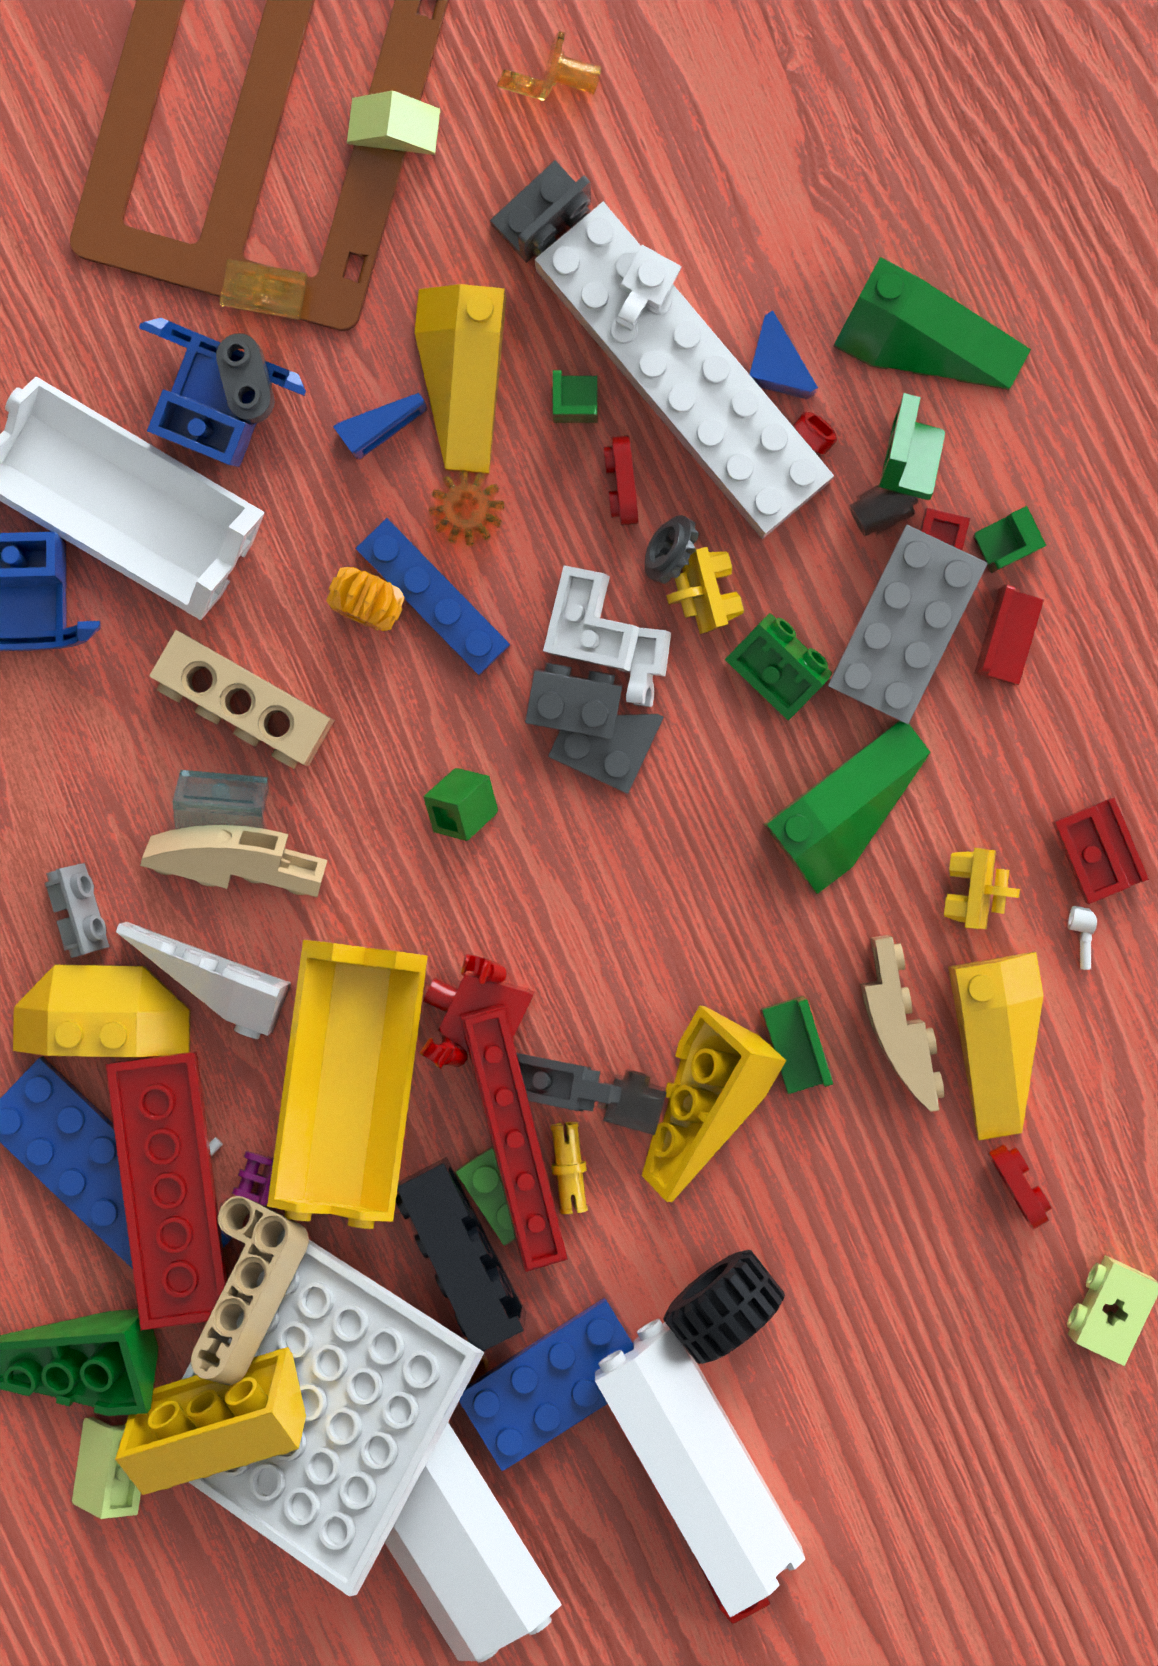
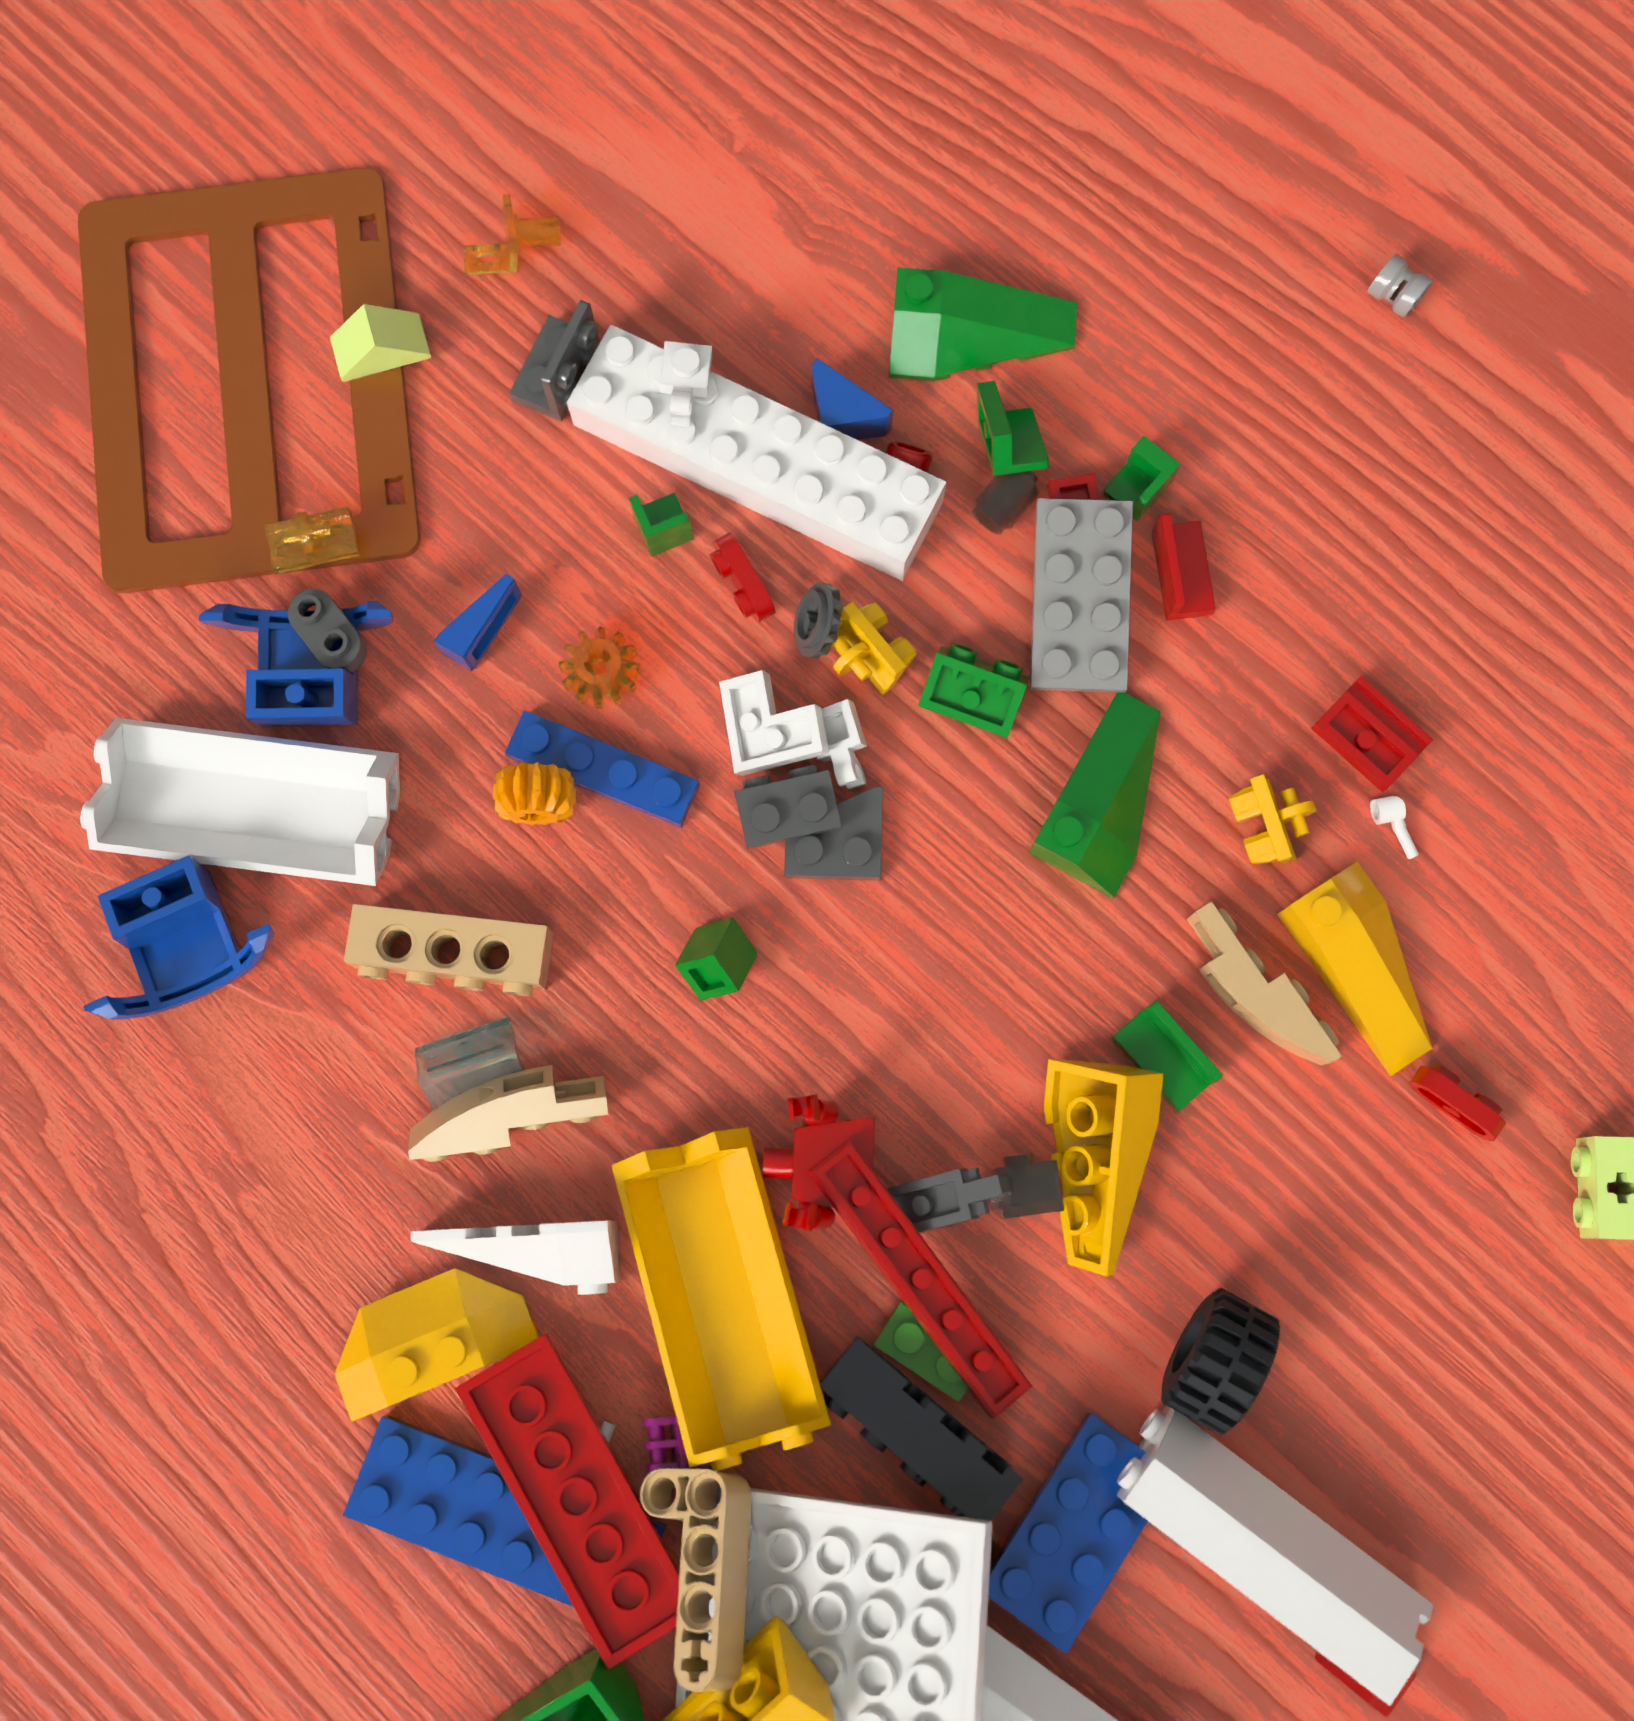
camera: 25 degrees left, 10 degrees down
(84, 928) = (350, 1221): light grey hinge -> none
(460, 357) = (533, 530): yellow wedge -> none
(569, 1167) = (990, 1288): yellow pin -> none

